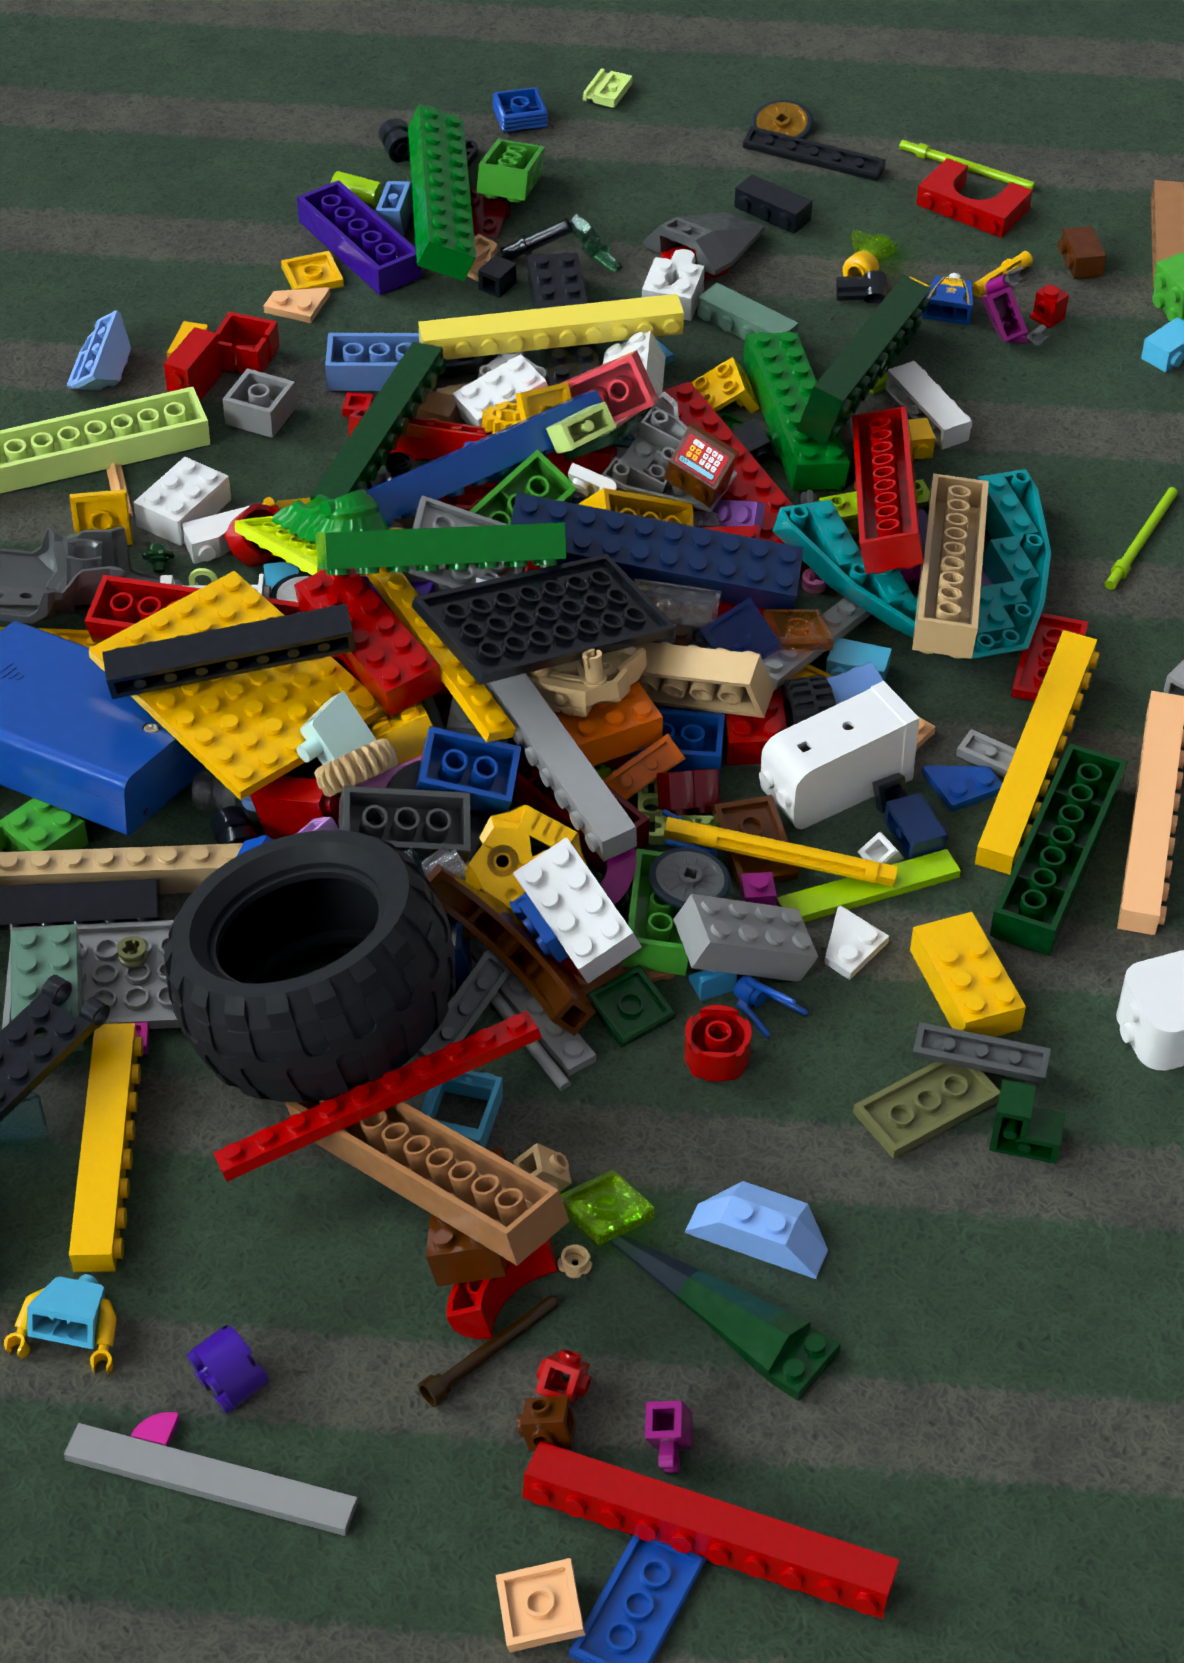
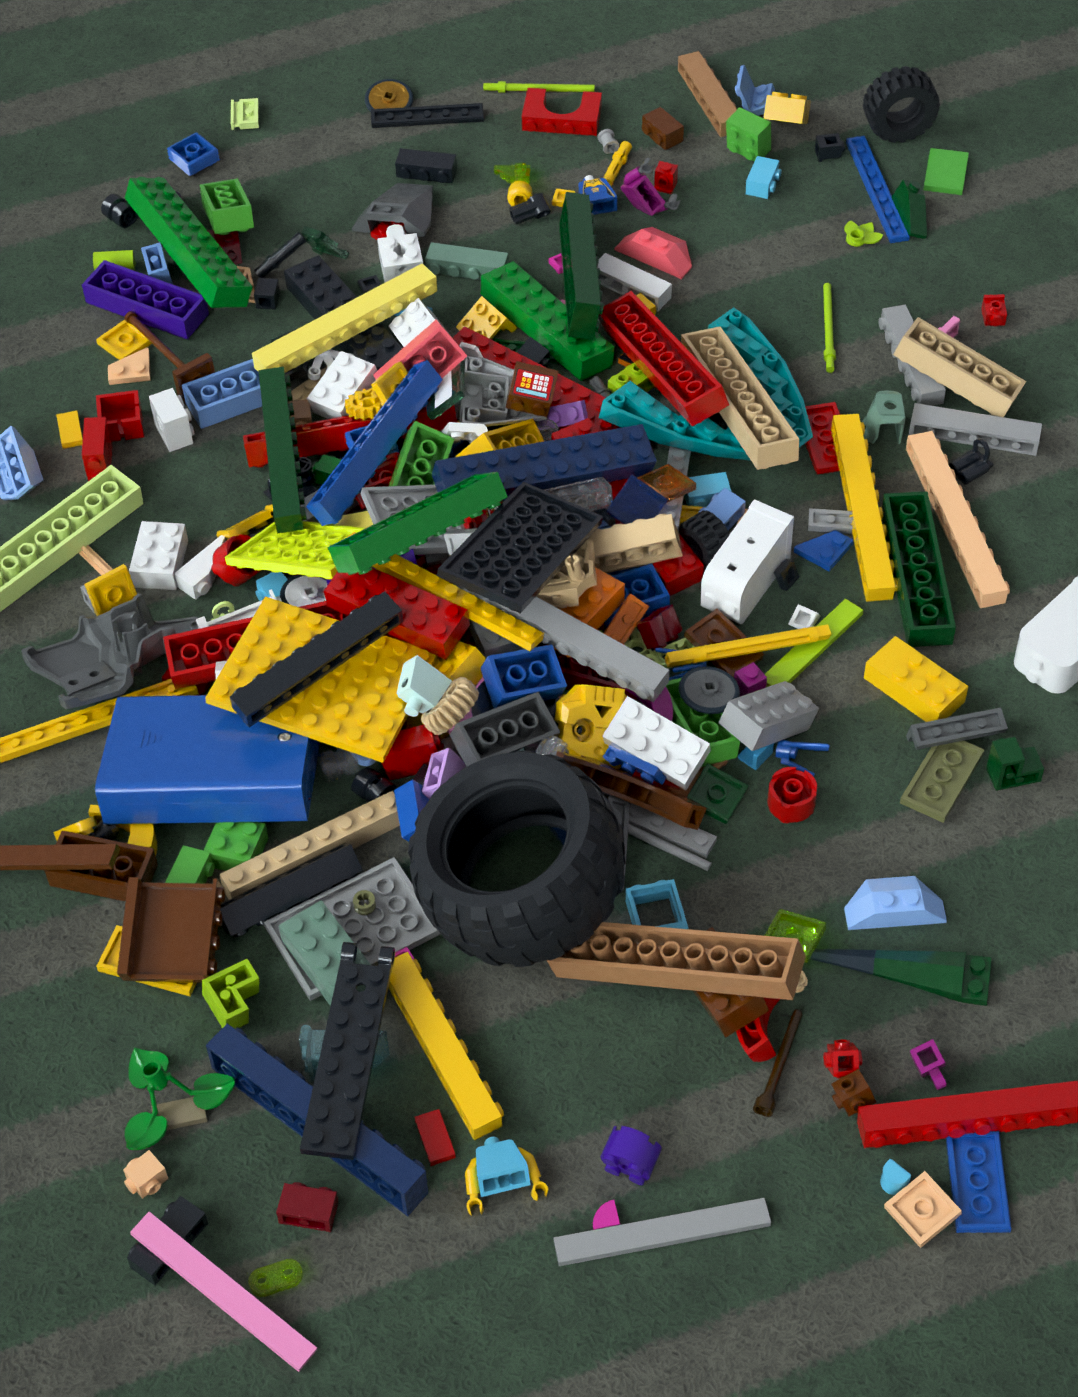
camera: 25 degrees left, 5 degrees up
(30, 1247) = (435, 1137): none -> red tile
(158, 555) = (169, 604): dark green plant -> none
(259, 403) = (163, 458): light grey brick -> none
(296, 361) = (172, 419): none -> white brick
(323, 514) = (309, 530): green piece -> none
(346, 320) = (184, 373): none -> reddish brown tile
(356, 401) = (232, 432): red plate -> none
(376, 1096) = (614, 930): red plate -> none
(529, 1547) = (894, 1177): none -> medium azure brick
(546, 1165) = (741, 924): tan brick -> none
(581, 427) = (434, 393): yellowish green brick -> none
(852, 943) = (826, 688): white wing -> none
(915, 826) = (817, 592): dark blue brick -> none
(986, 383) = (657, 250): none -> coral wedge
(1008, 245) = (606, 138): none -> light grey bush
(1129, 653) = (879, 414): none -> sand green piece

